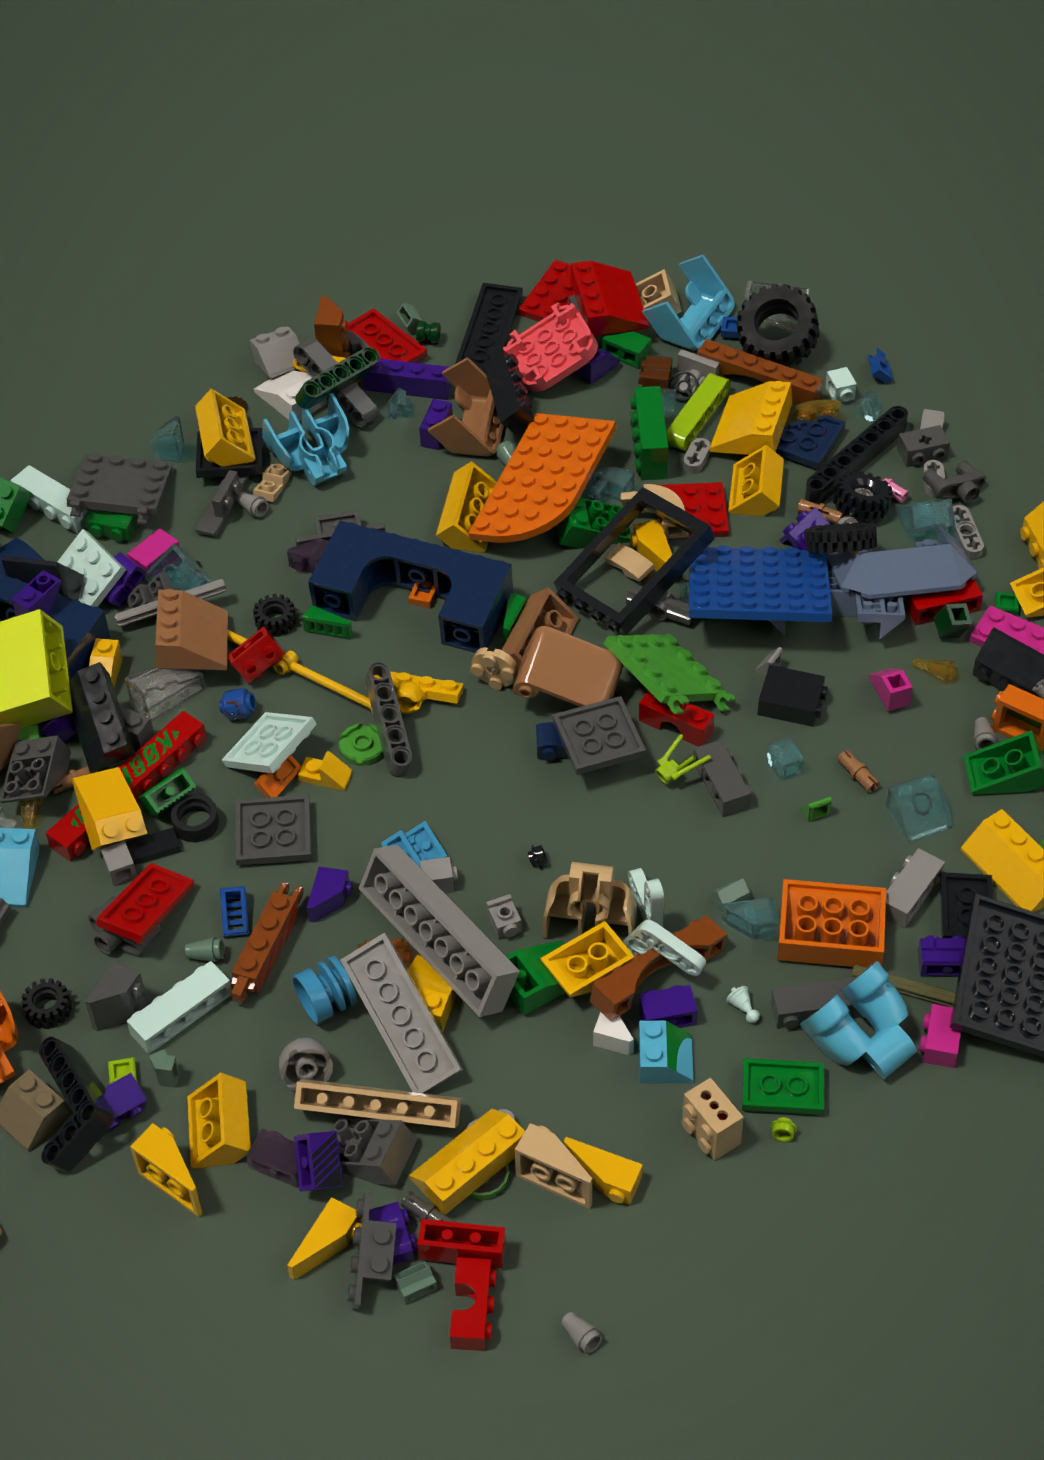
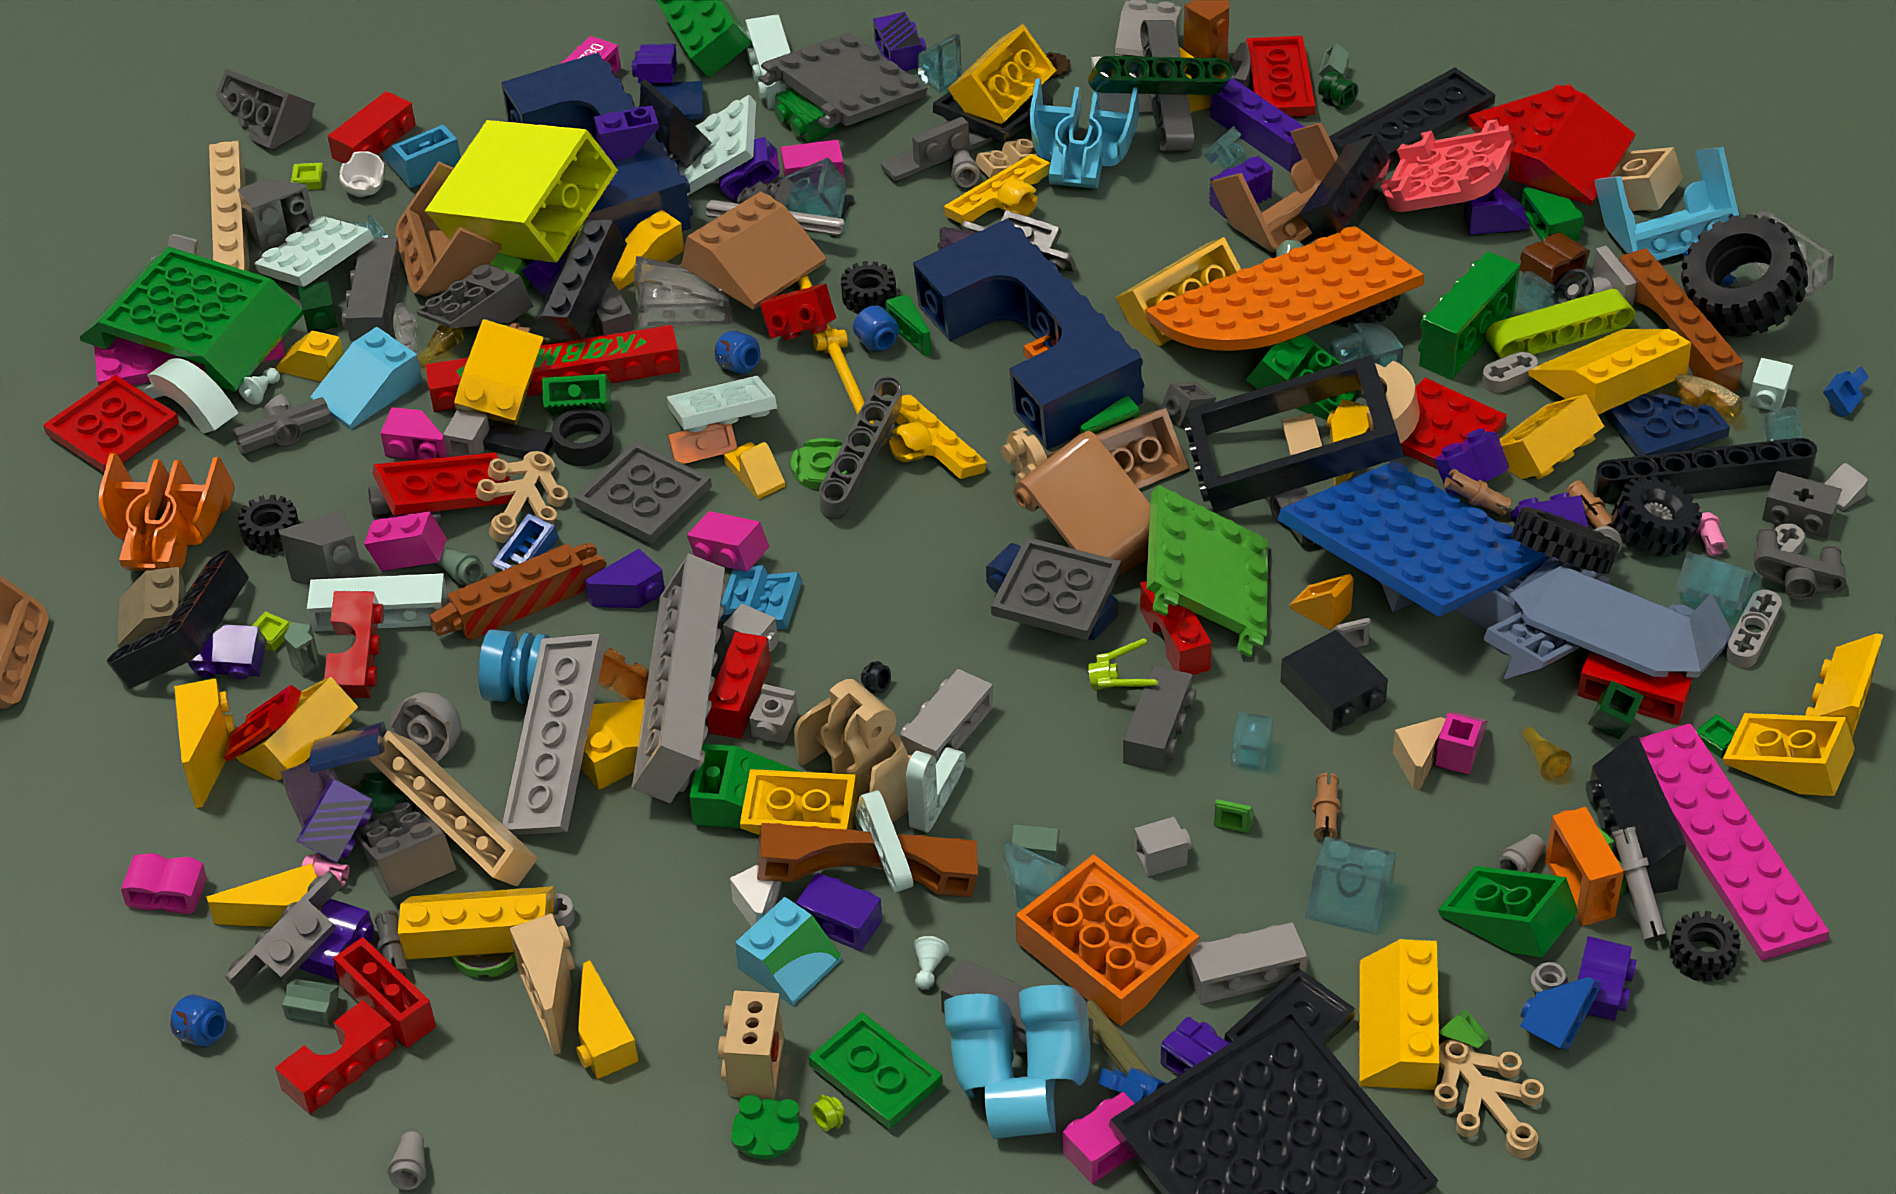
camera: 40 degrees right, 5 degrees down
(83, 884) = (411, 436): none -> dark pink slope
(122, 441) = (898, 40): none -> dark purple brick
(160, 956) = (405, 541): none -> dark pink brick
(189, 856) = (536, 467): none -> tan plant
(192, 1023) = (357, 616): none -> arch
(200, 1132) = (262, 722): none -> red slope
(240, 1277) = (164, 883): none -> dark pink brick
(280, 1109) = (347, 747): none -> dark blue slope
(293, 505) = (1006, 190): none -> yellow plate
(310, 638) = (875, 328): none -> blue head
(310, 1122) = (380, 790): none -> clear green plate
(339, 1193) = (321, 866): none -> bright pink pin
(361, 1344) = (198, 1020): none -> blue head
(365, 827) = (728, 540): none -> dark pink brick
(460, 893) = (738, 685): none -> red brick
(539, 577) = (1185, 397): none -> dark grey bracket
(607, 846) = (949, 715): none -> light grey brick
(737, 522) = (1476, 457): none -> dark purple brick
(738, 651) = (1326, 601): none -> light orange slope
(758, 537) = (1477, 492): none -> medium nougat pin
(759, 1162) = (765, 1127): none -> green piece
(800, 851) = (1161, 846): none -> light grey brick
(875, 709) = (1417, 749): none -> tan slope
(931, 994) = (1135, 1084): none -> blue plate

